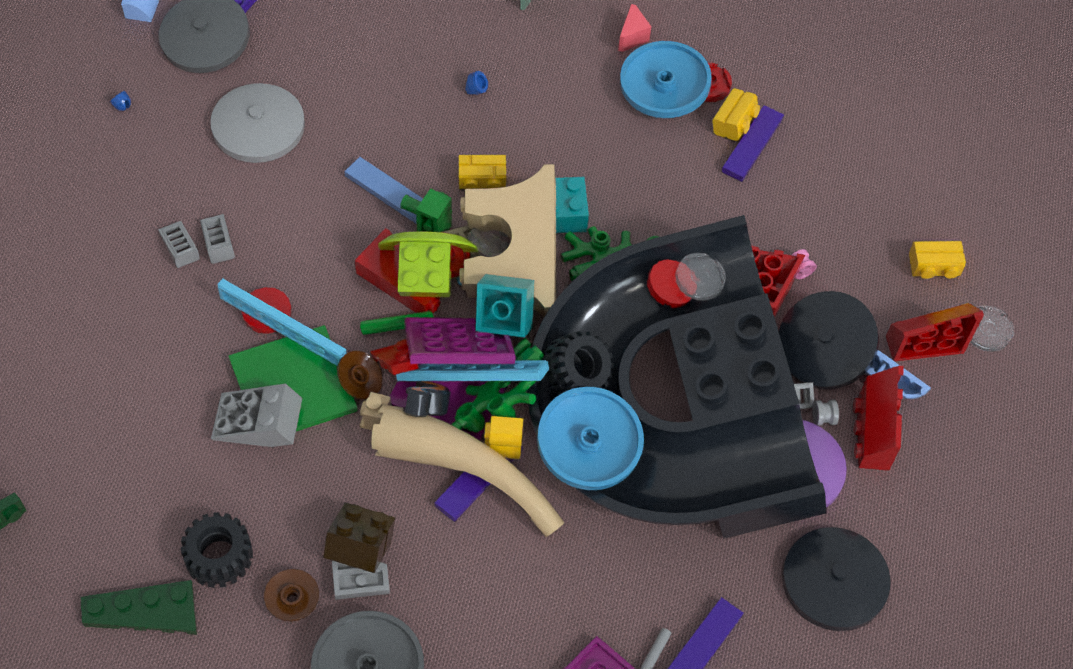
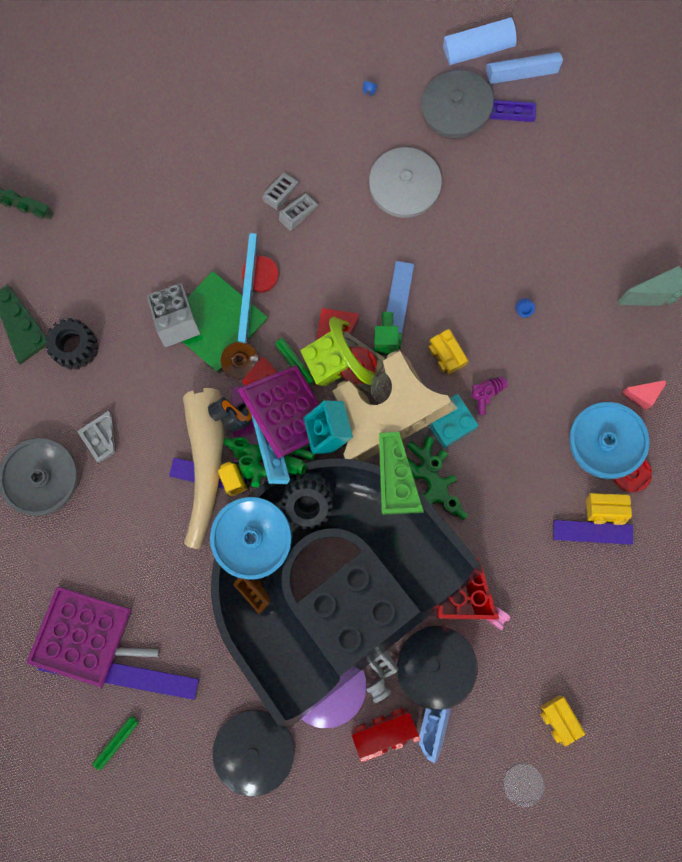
camera: 70 degrees right, 20 degrees up
(287, 584) = (59, 399): reddish brown dish -> none
(359, 537) = (118, 422): dark brown piece -> none
(370, 410) = (218, 382): tan brick -> none
(547, 154) = (486, 390): none -> magenta piece
(614, 259) = (397, 482): none -> bright green wing
(641, 489) = (248, 589): none -> reddish brown slope
(663, 284) = (406, 534): red tile -> none
(700, 276) = (422, 553): clear tile -> none
(934, 333) = (487, 744): red wedge -> none

